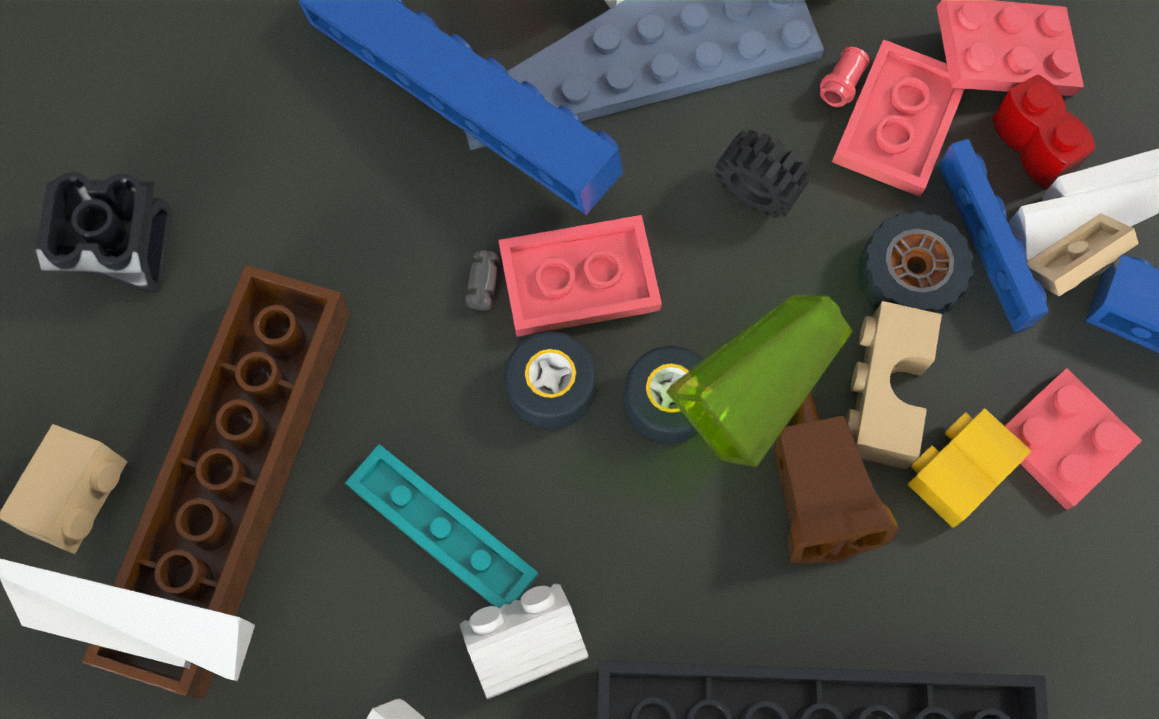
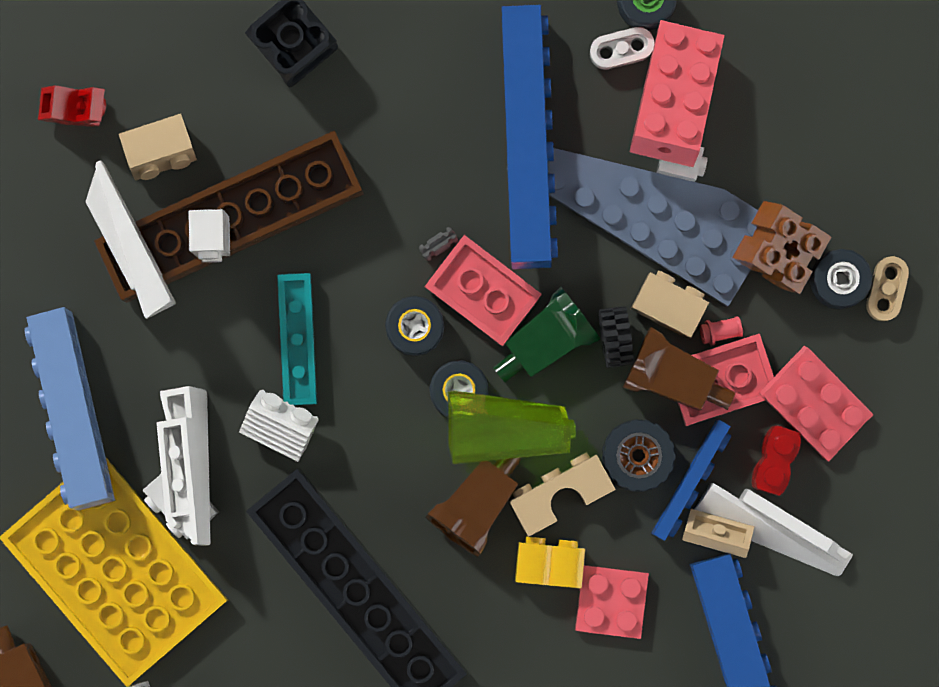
camera: 50 degrees right, 15 degrees up
(208, 498) = (209, 234): none -> white brick
(696, 246) = (547, 338): none -> dark green piece
(775, 95) = (669, 304): none -> tan brick
(860, 145) = (675, 375): none -> reddish brown piece

